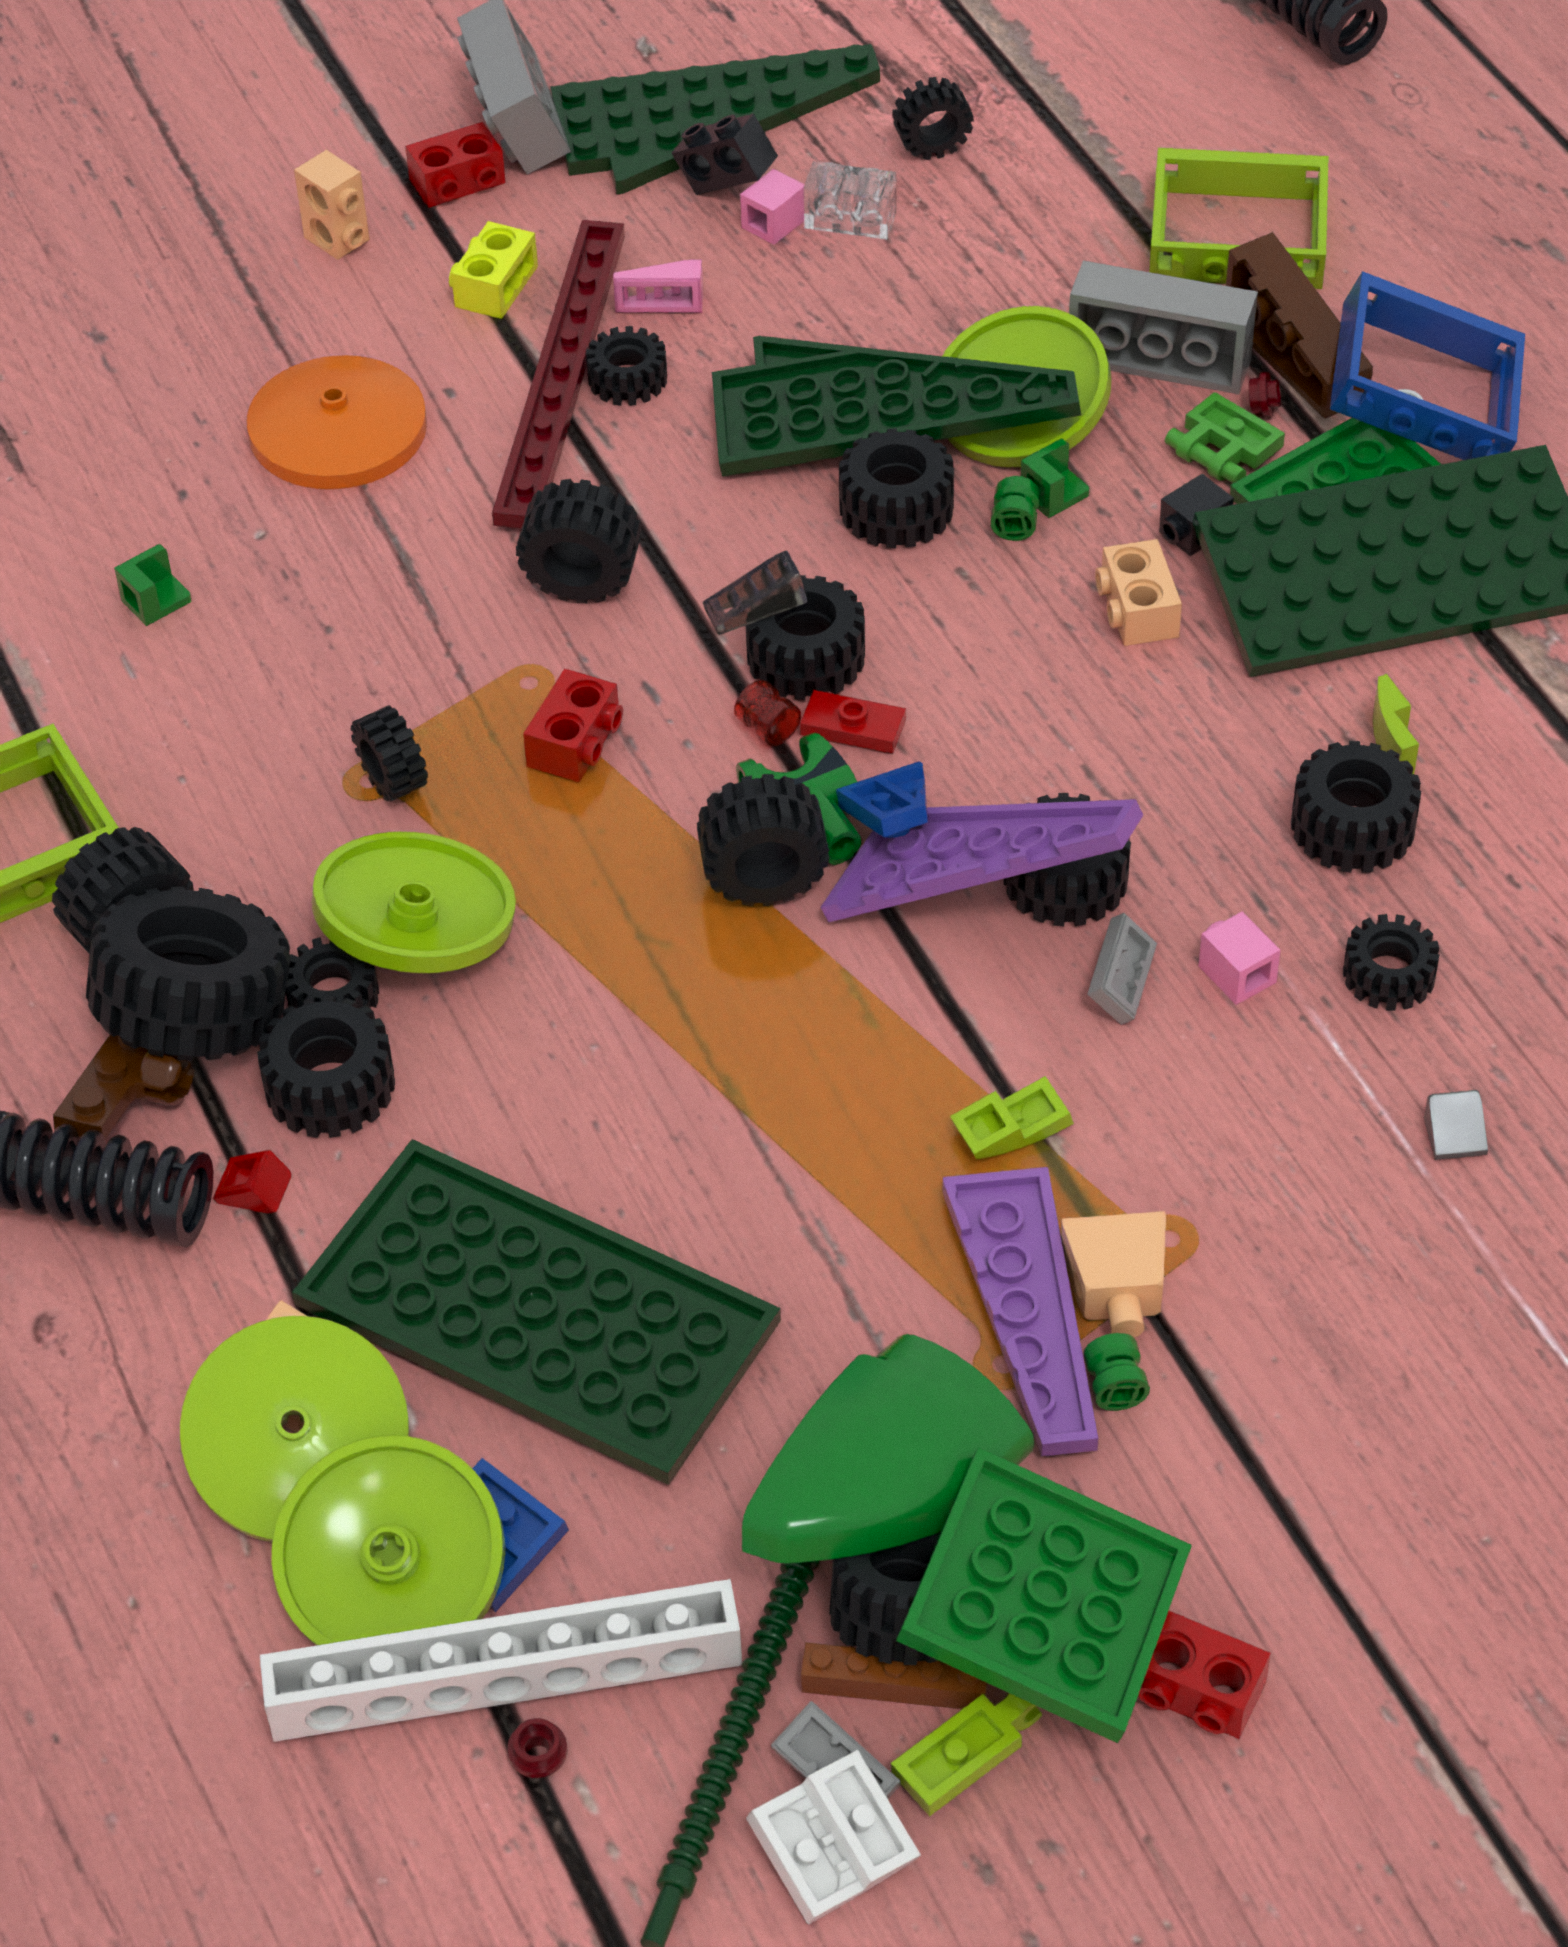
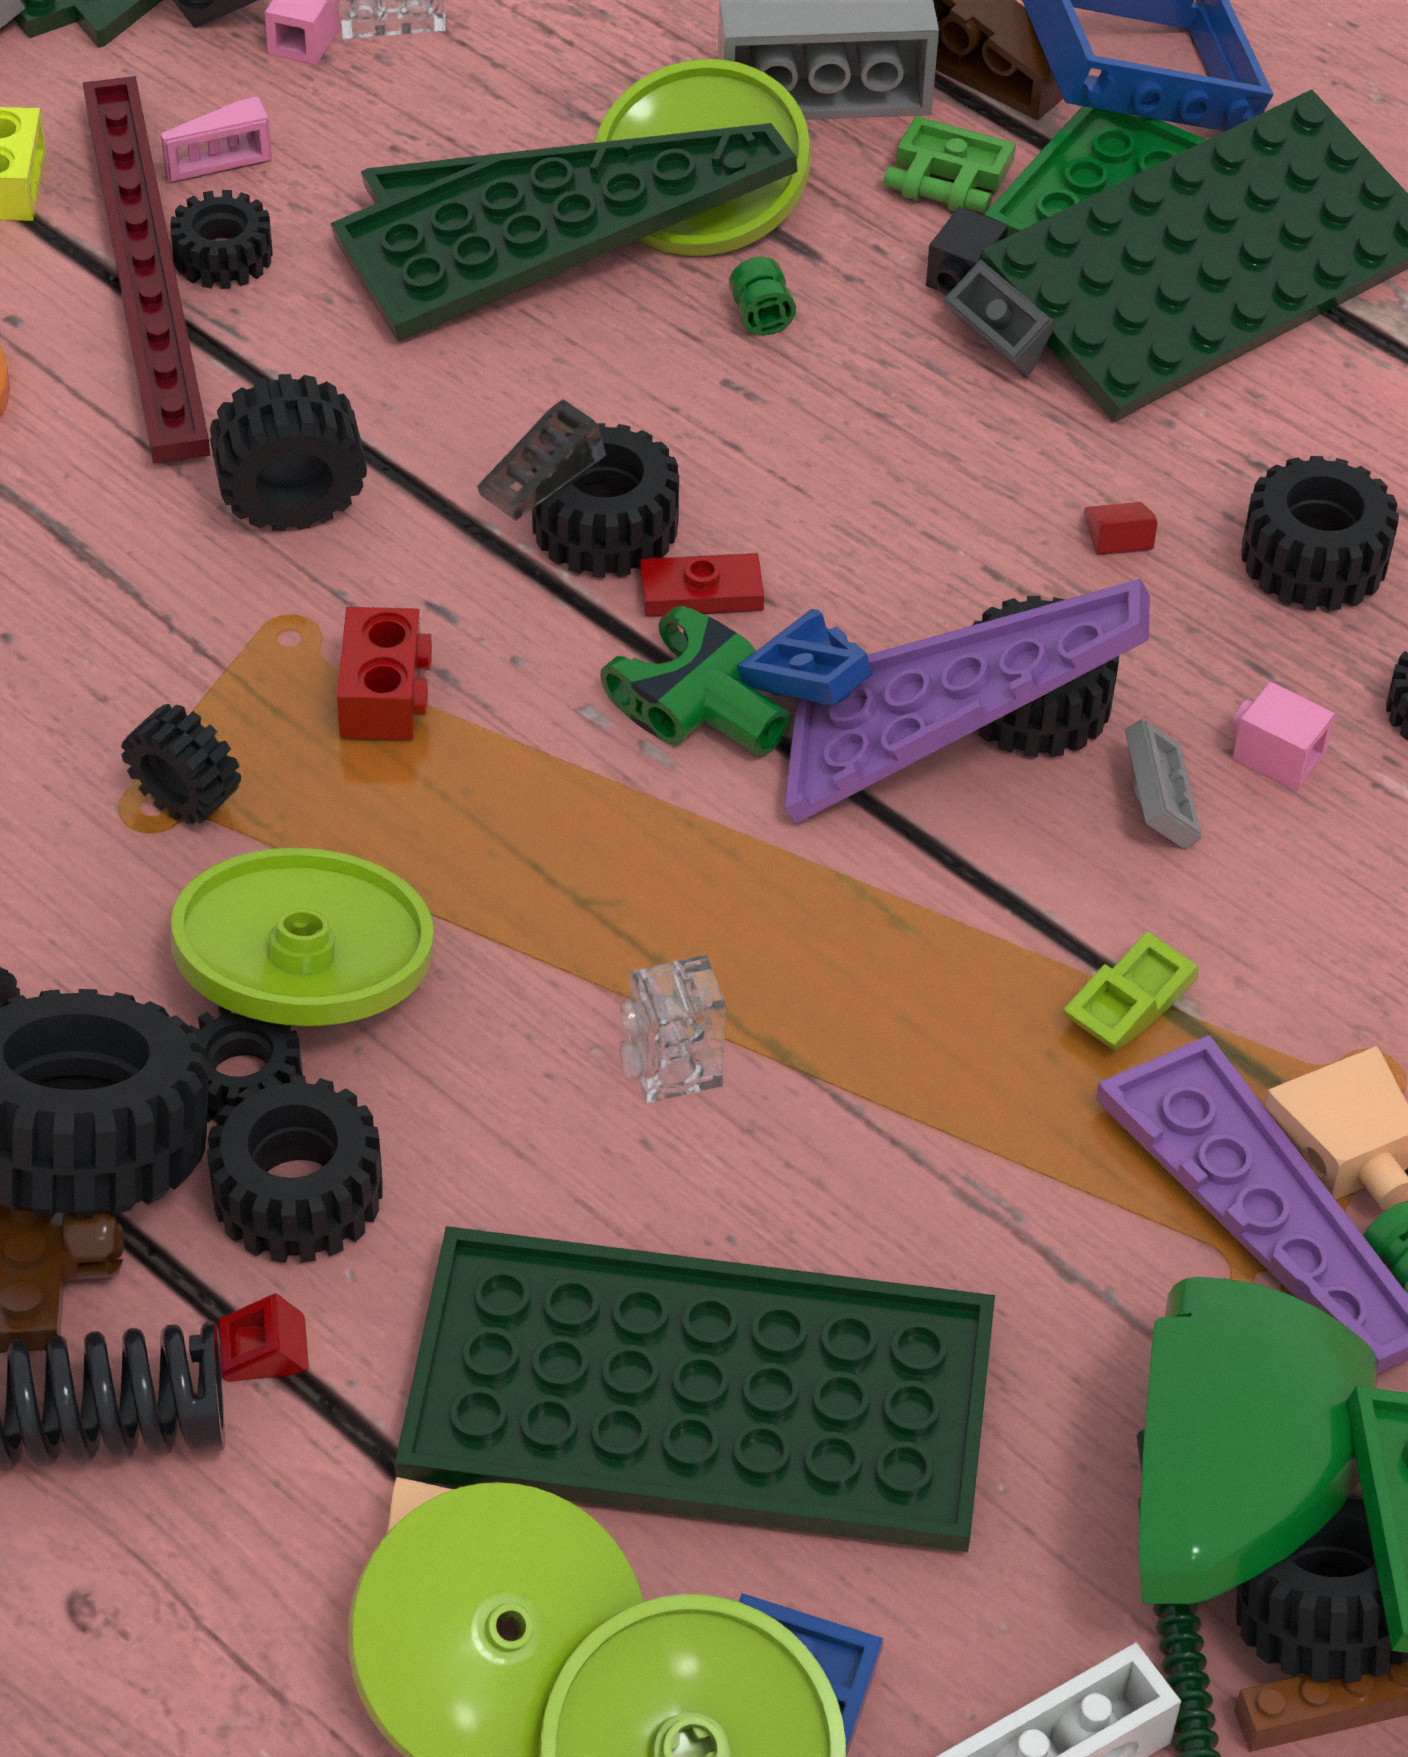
camera: 25 degrees left, 0 degrees up
(639, 1044) = (674, 1029): none -> clear brick
(762, 840) = (694, 746): black tyre -> none
(772, 717) = (603, 599): clear red wheel -> none
(896, 488) = (619, 304): black tyre -> none
(1056, 483) = (797, 260): green panel -> none
(1139, 592) = (952, 356): light nougat brick -> none
(1193, 571) = (1001, 316): none -> dark grey slope
(1205, 762) = (1121, 527): none -> red slope
(1264, 394) = (968, 106): dark red plate -> none
(1391, 721) = (1295, 426): lime slope -> none

